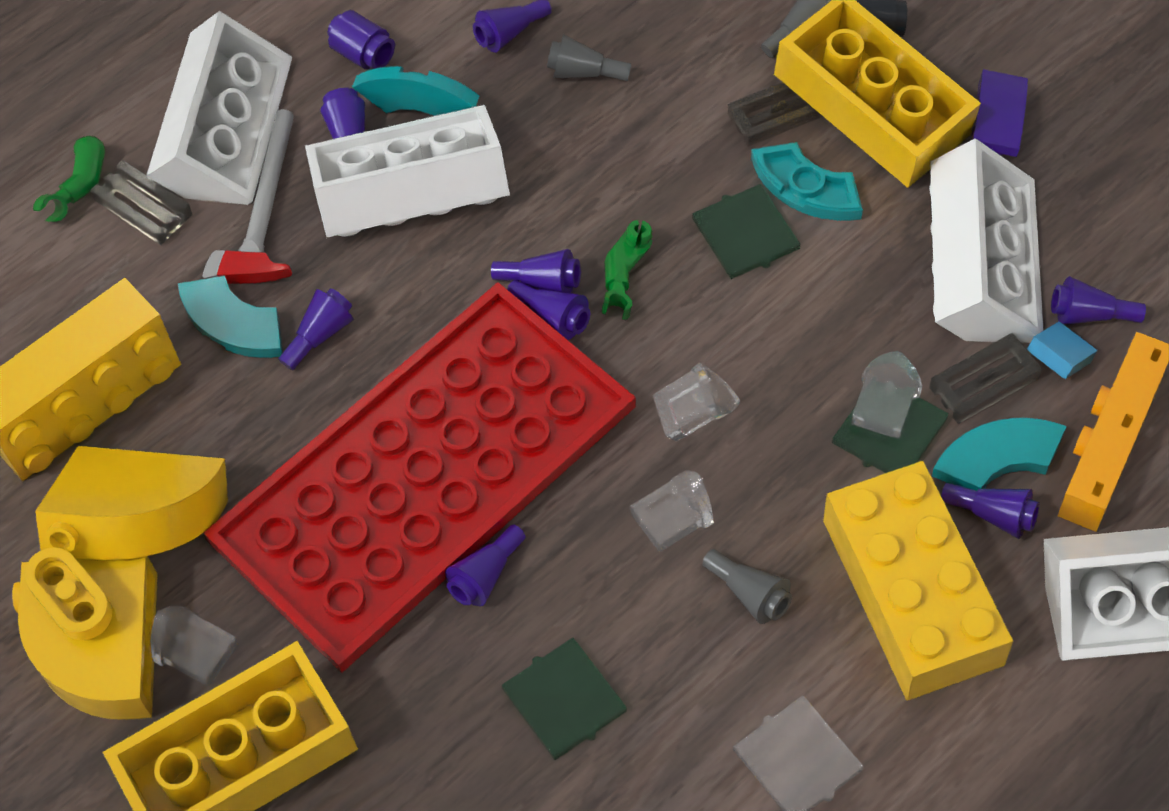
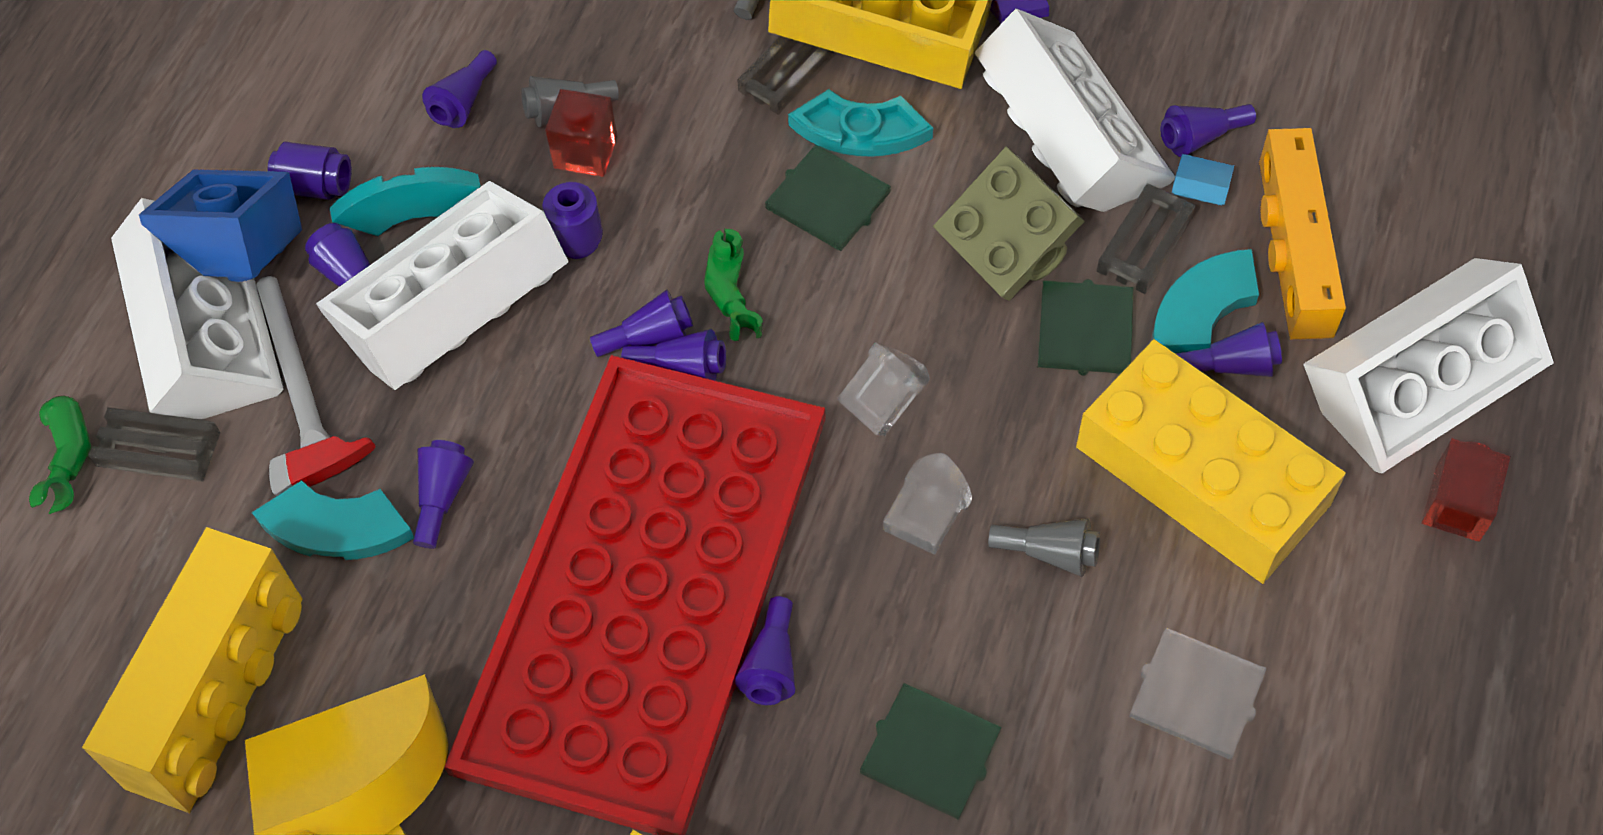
camera: 30 degrees left, 0 degrees up
(274, 54) = (226, 220): none -> blue slope
(530, 162) = (574, 218): none -> dark purple brick
(578, 96) = (581, 132): none -> clear red brick
(870, 314) = (1009, 225): none -> olive plate
(887, 394) = (1068, 294): clear tile -> none
(1120, 705) = (1466, 489): none -> clear red brick

